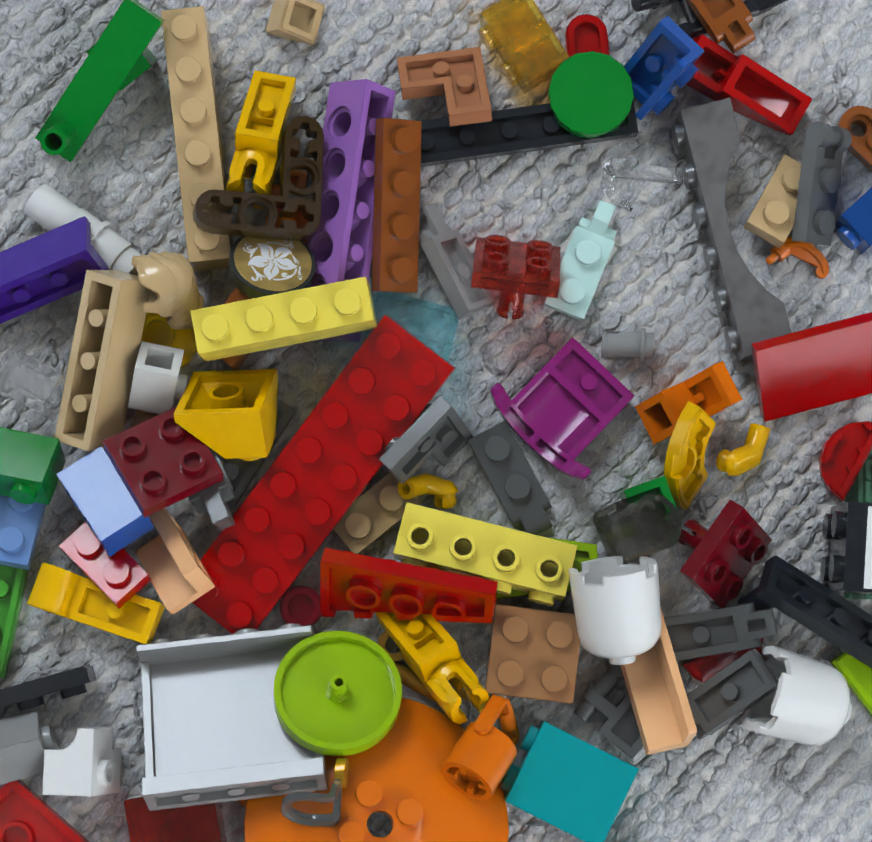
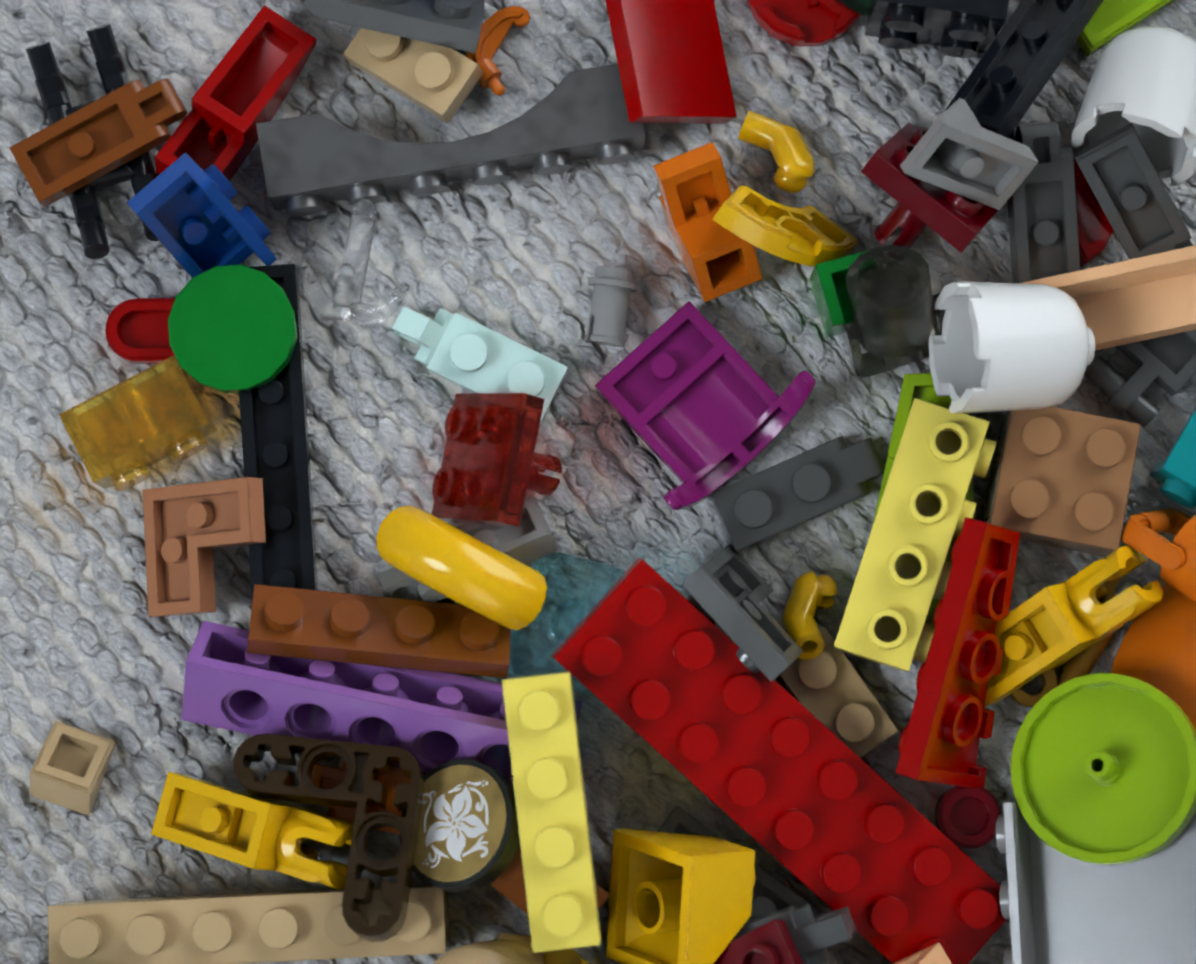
camera: 80 degrees left, 0 degrees up
(441, 254) = (461, 567): none -> yellow cylinder
(743, 570) = (969, 158): none -> light grey slope

